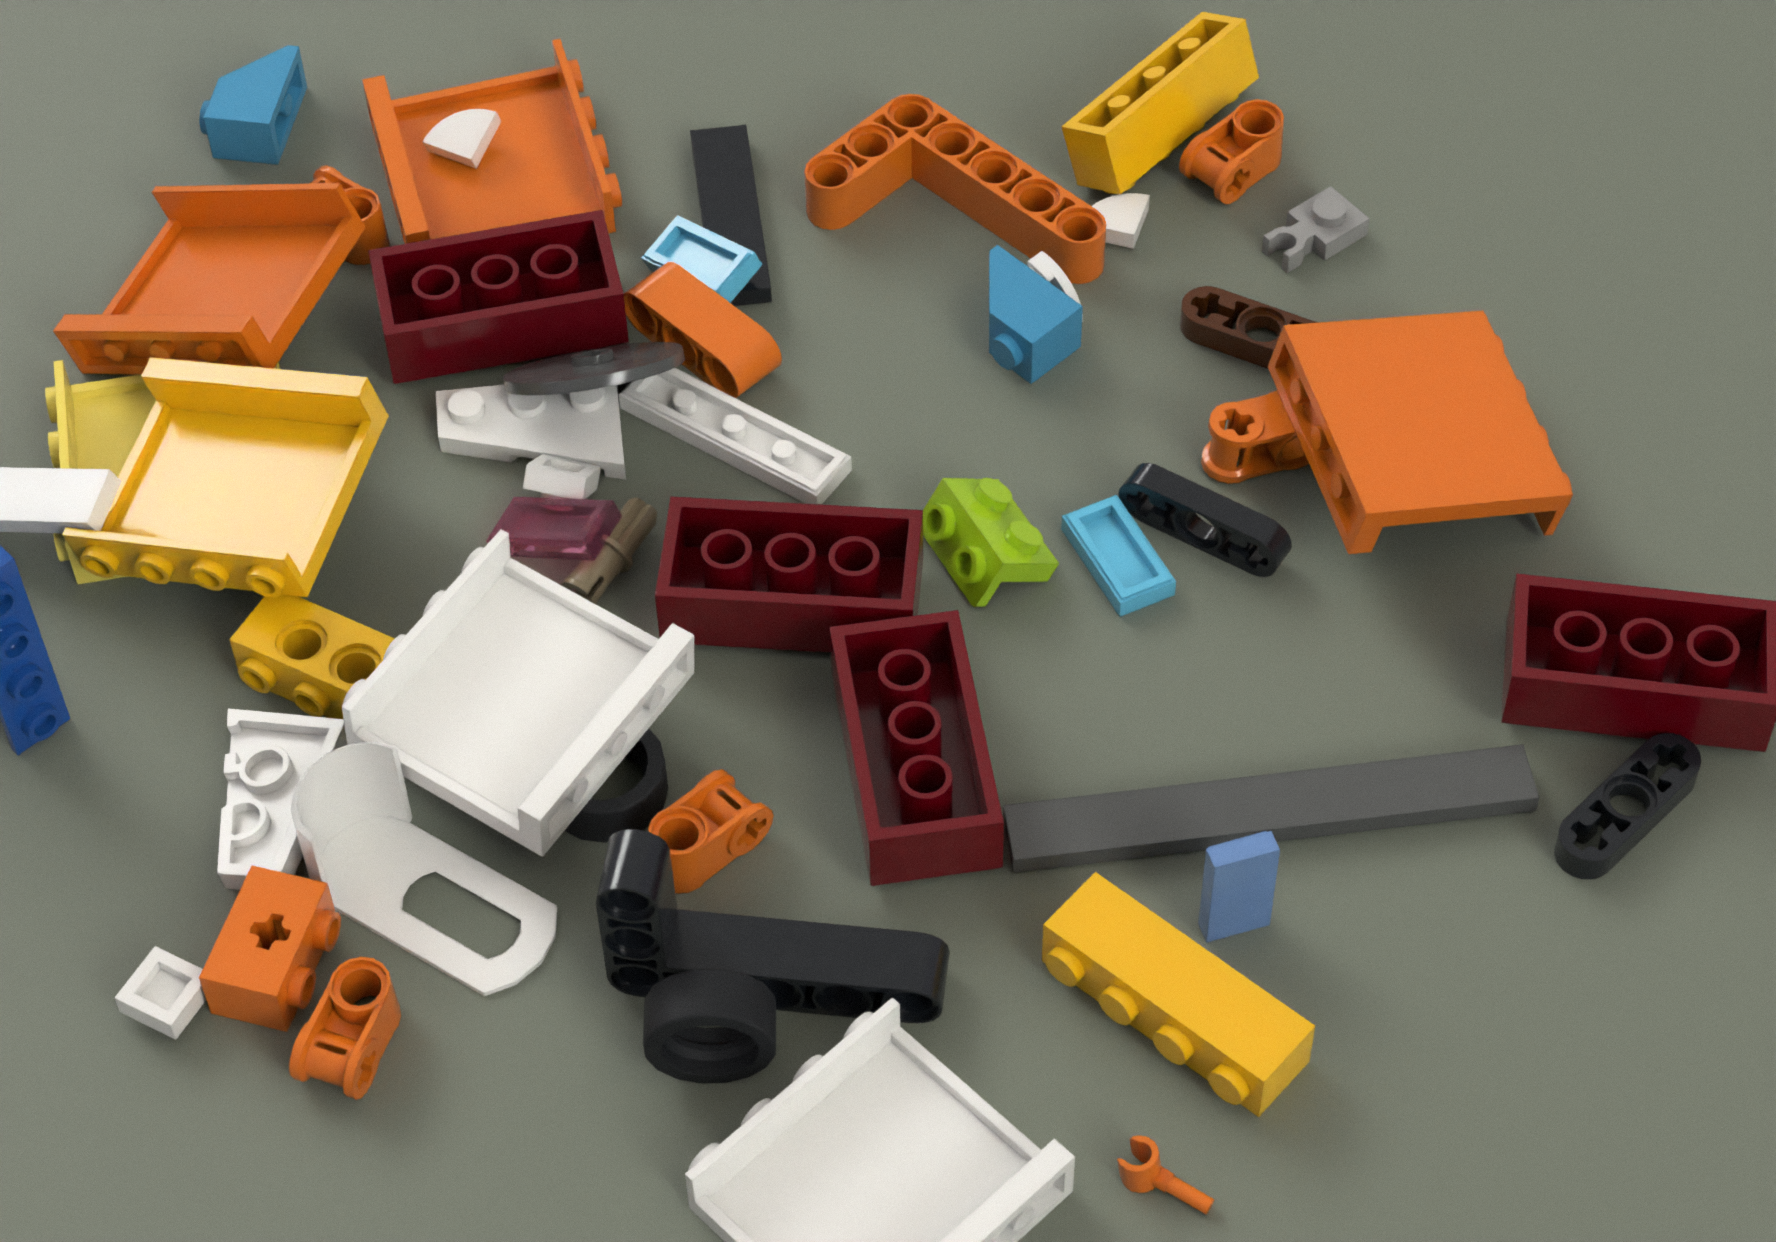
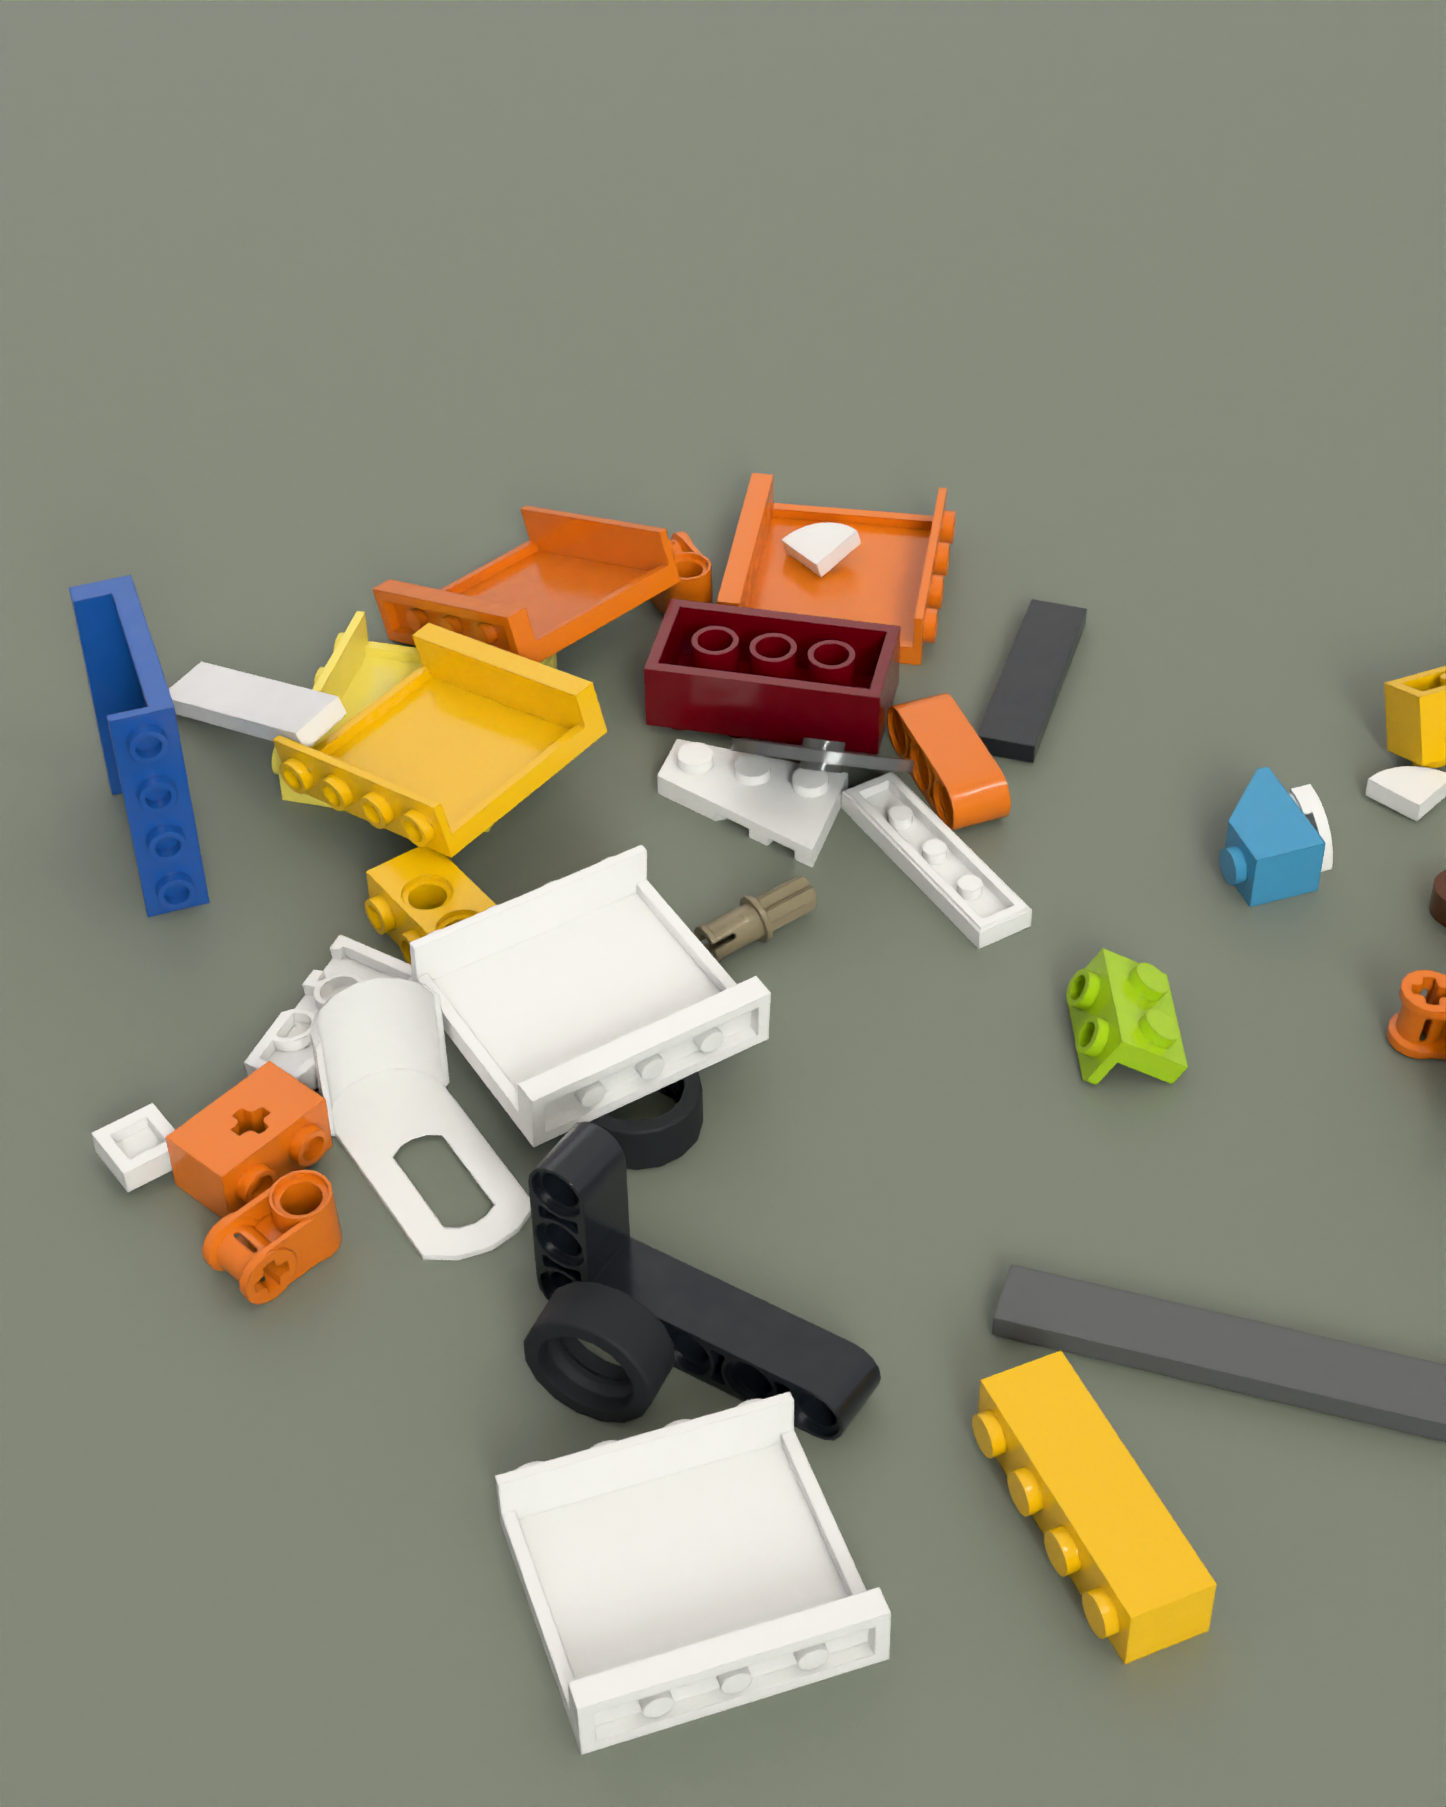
camera: 25 degrees right, 10 degrees down
(255, 108) = (655, 475): dark azure slope -> none
(557, 527) = (714, 879): clear pink tile -> none
(561, 477) = (746, 843): white plate -> none
(704, 254) = (984, 701): medium azure tile -> none
(712, 827) = (697, 1184): orange piece -> none
(785, 570) = (911, 988): dark red brick -> none
(916, 748) = (943, 1179): dark red brick -> none
(964, 168) = (1272, 695): orange beam -> none
(1118, 555) = (1255, 1082): medium azure tile -> none
(1152, 1175) = (976, 1673): orange hand -> none
(1237, 533) = (1360, 1076): black beam -> none
(1238, 885) = (1204, 1417): medium blue tile -> none

